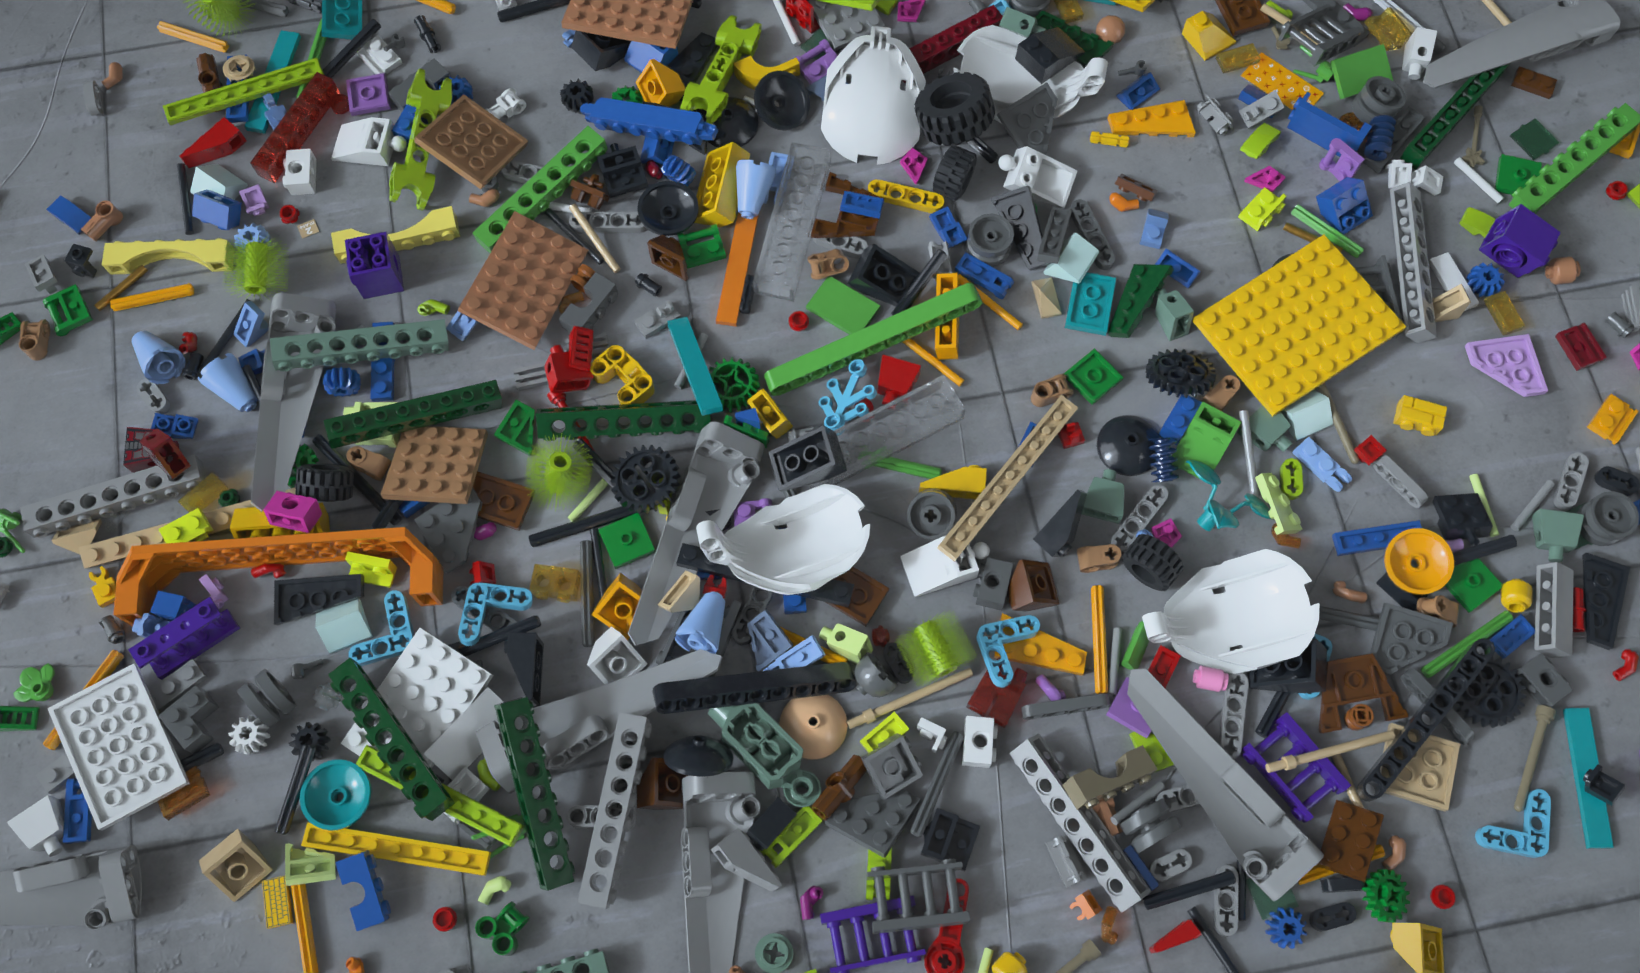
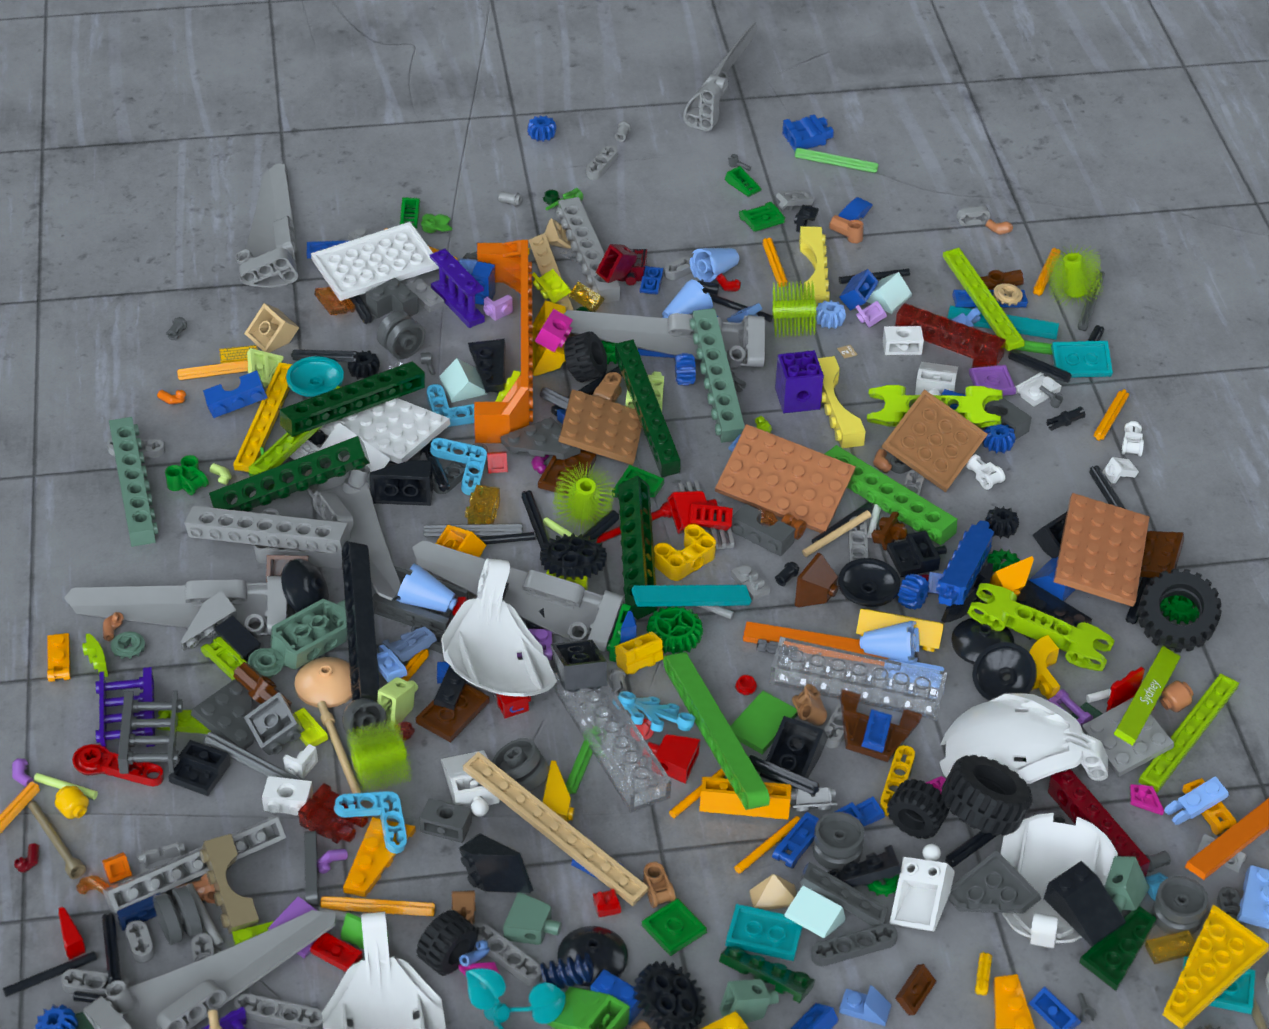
camera: 90 degrees right, 25 degrees down
(35, 339) = (732, 199): medium nougat piece -> none
(41, 826) = (321, 228): white torso -> none
(127, 282) = (785, 245): pearl gold bar -> none
(216, 143) = (930, 288): red slope -> none
(242, 733) = (368, 332): white gear -> none
(266, 568) = (516, 342): red arm -> none
(288, 210) = (859, 336): red plate -> none
(382, 375) = (699, 399): blue plate -> none
(444, 919) = (203, 445): red plate -> none
(614, 657) = (401, 538): white slope -> none
(626, 540) = (521, 554): green plate -> none
(683, 594) = (455, 579): tan slope -> none
(702, 252) = (826, 618): green plate -> none
(808, 899) = (167, 670): magenta arm -> none
(1032, 587) = (439, 851): reddish brown slope -> none
(1111, 29) = (1140, 989): nougat hair -> none
(1122, 204) = (893, 978): orange arm -> none
(1210, 679) = (320, 992): bright pink brick -> none

